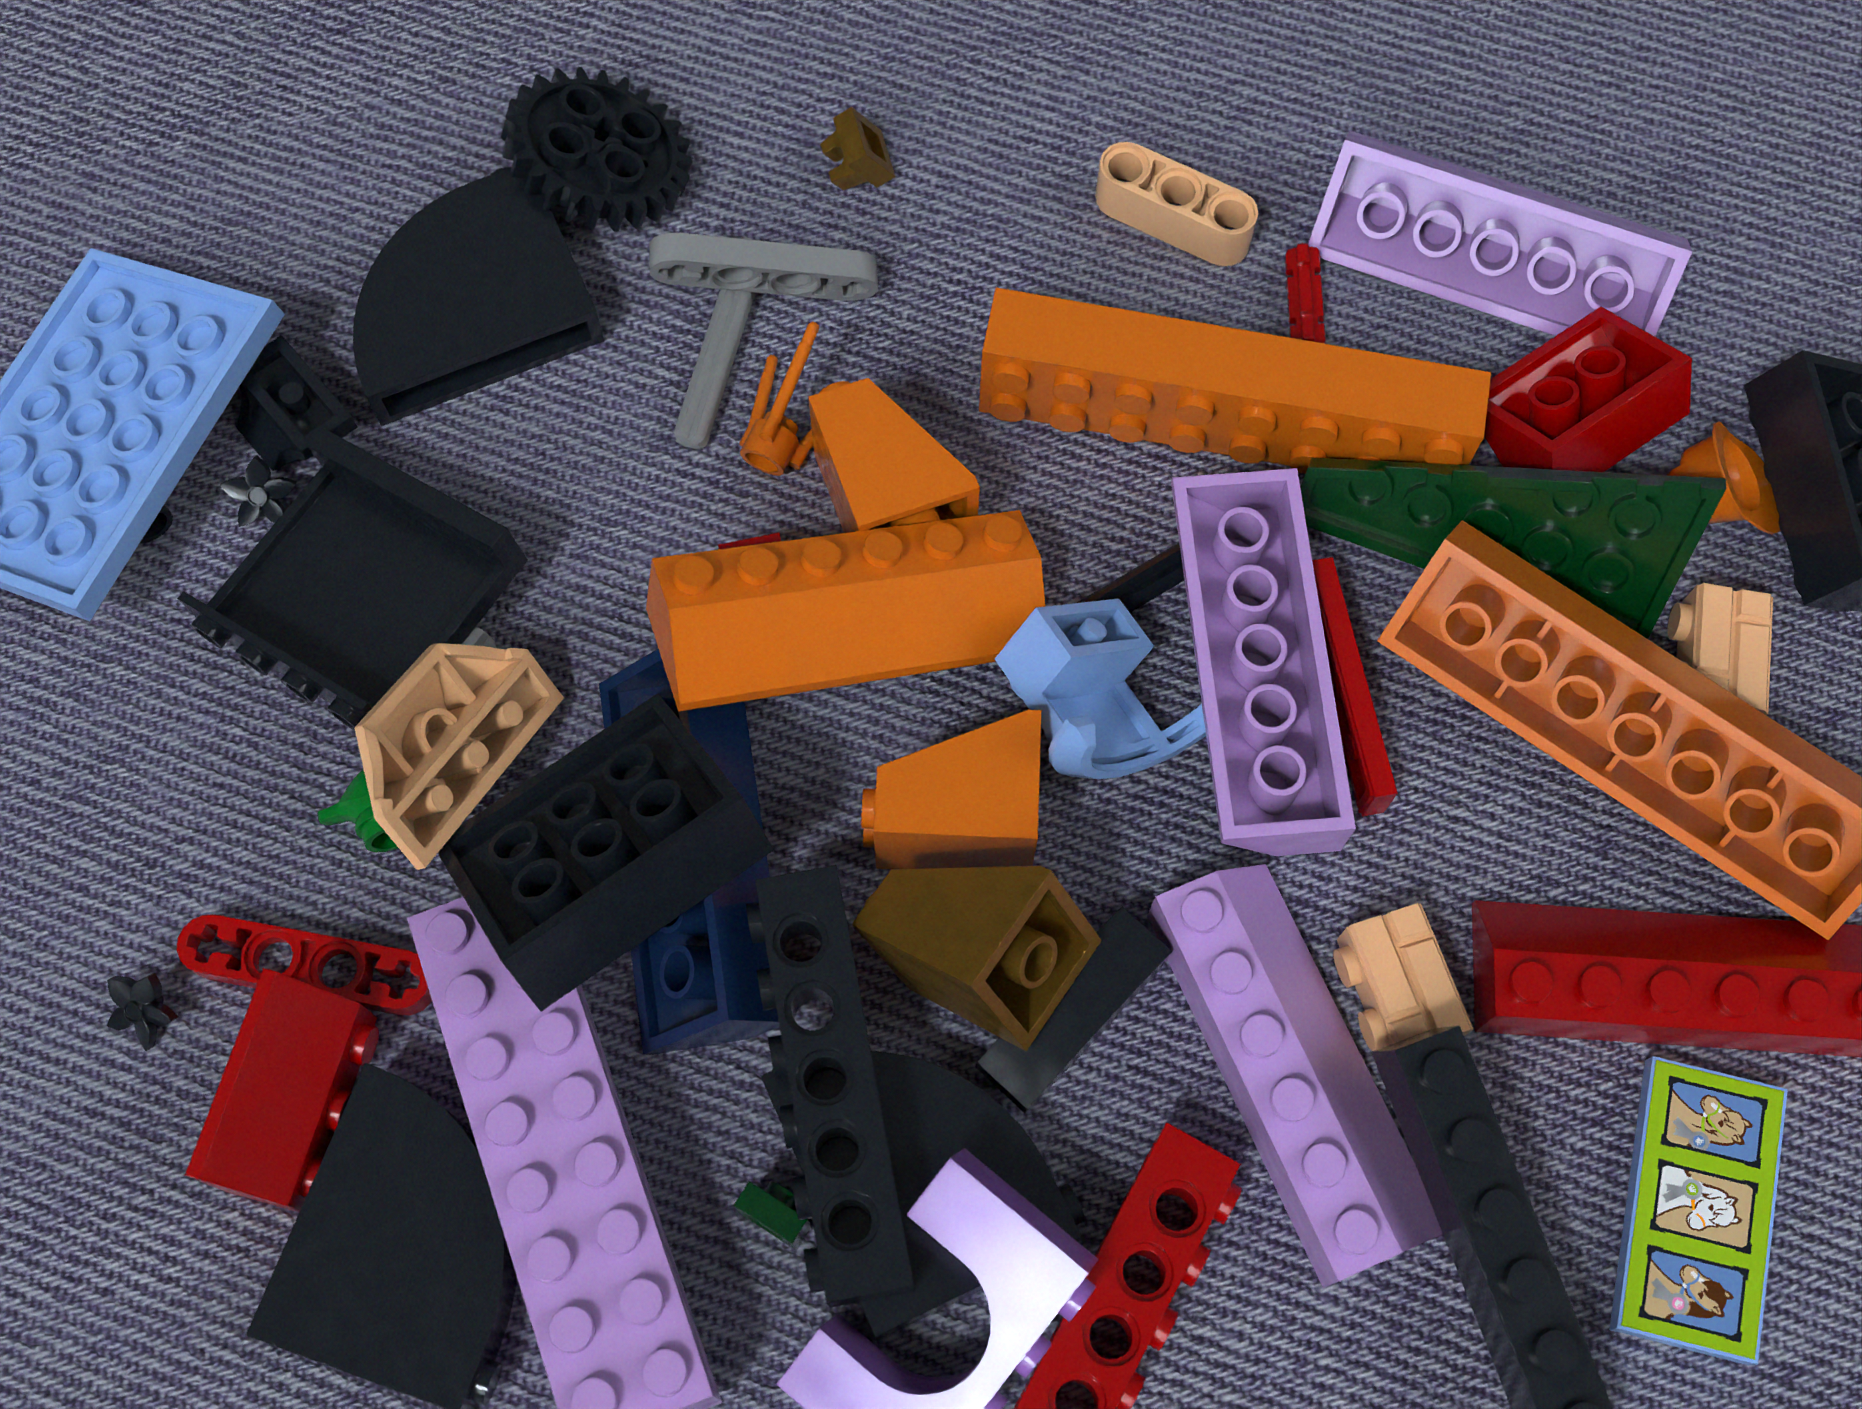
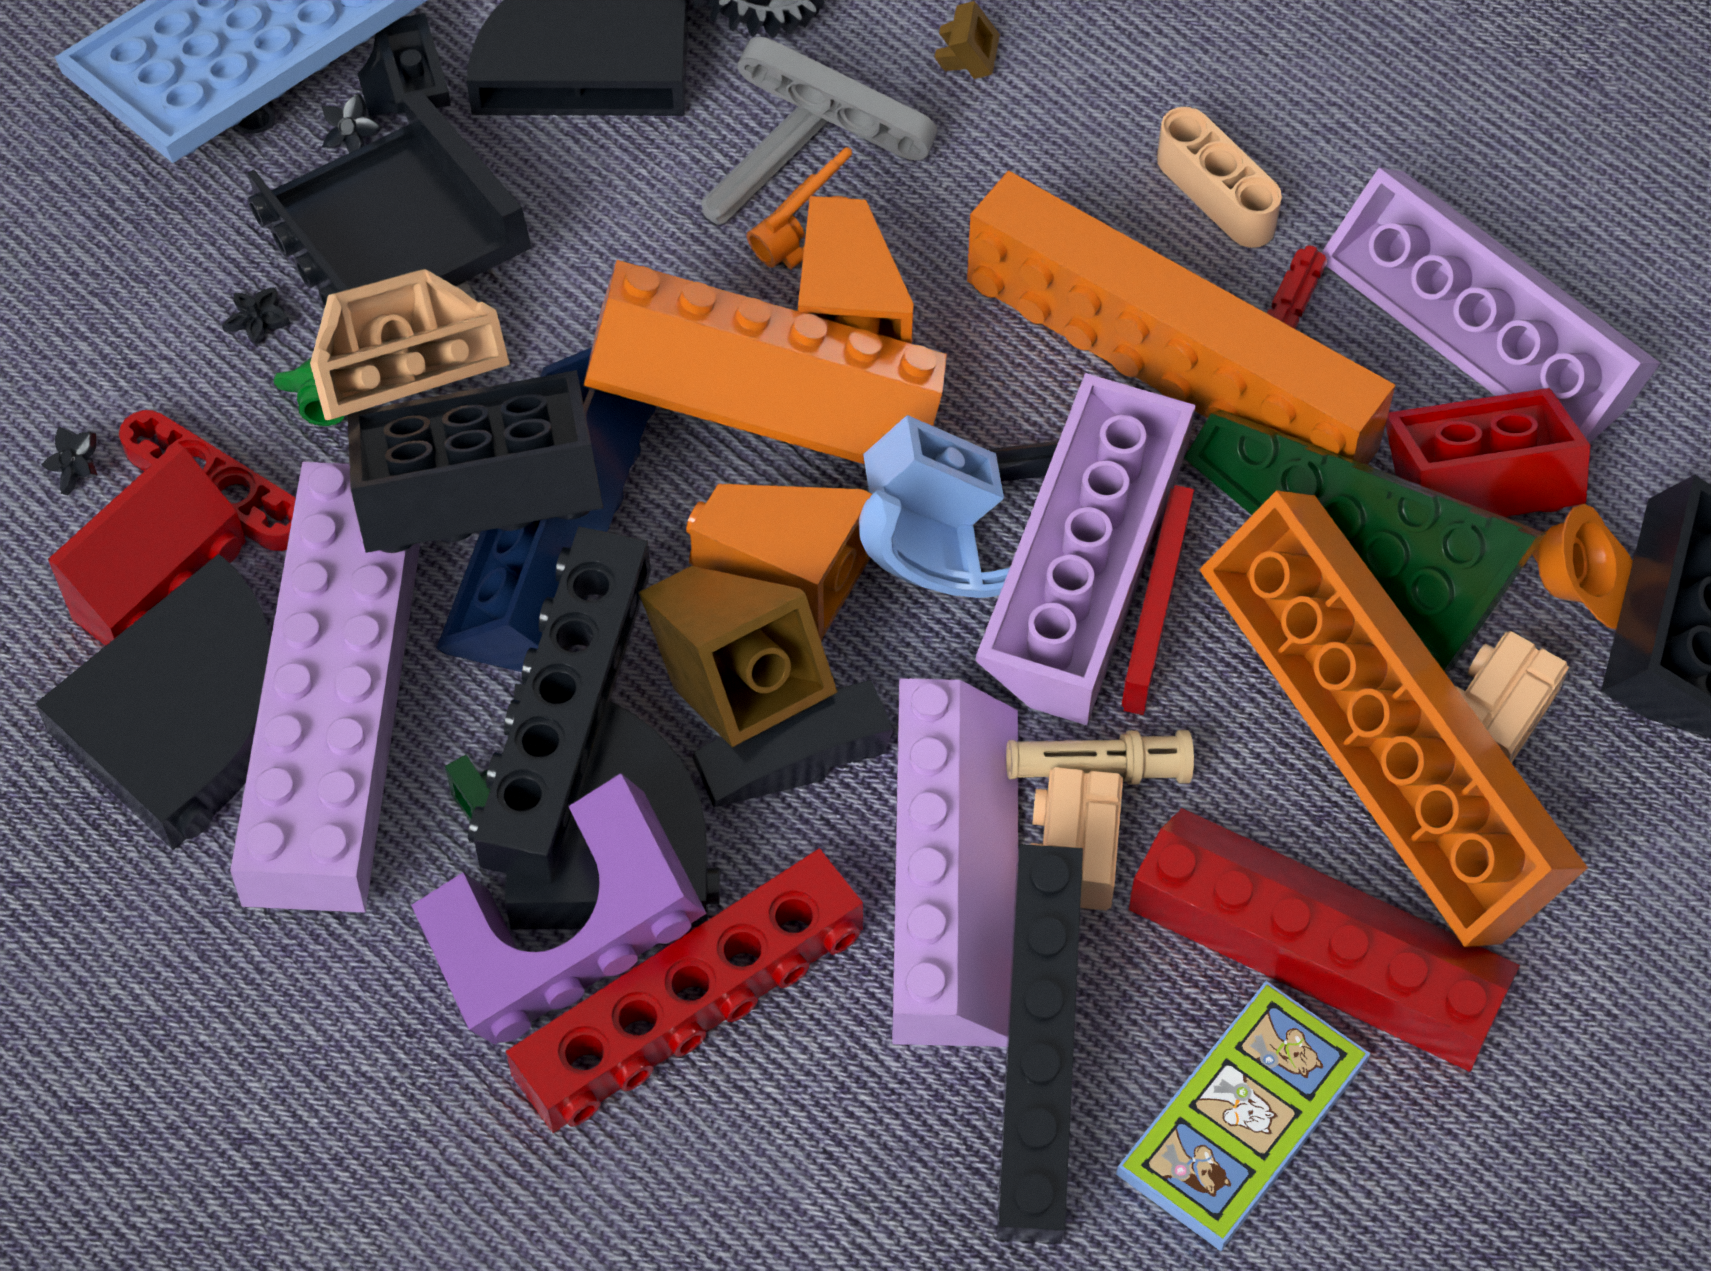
camera: 25 degrees right, 10 degrees down
(261, 750) = (256, 314): none -> black plant
(1403, 866) = (1131, 756): none -> tan pin

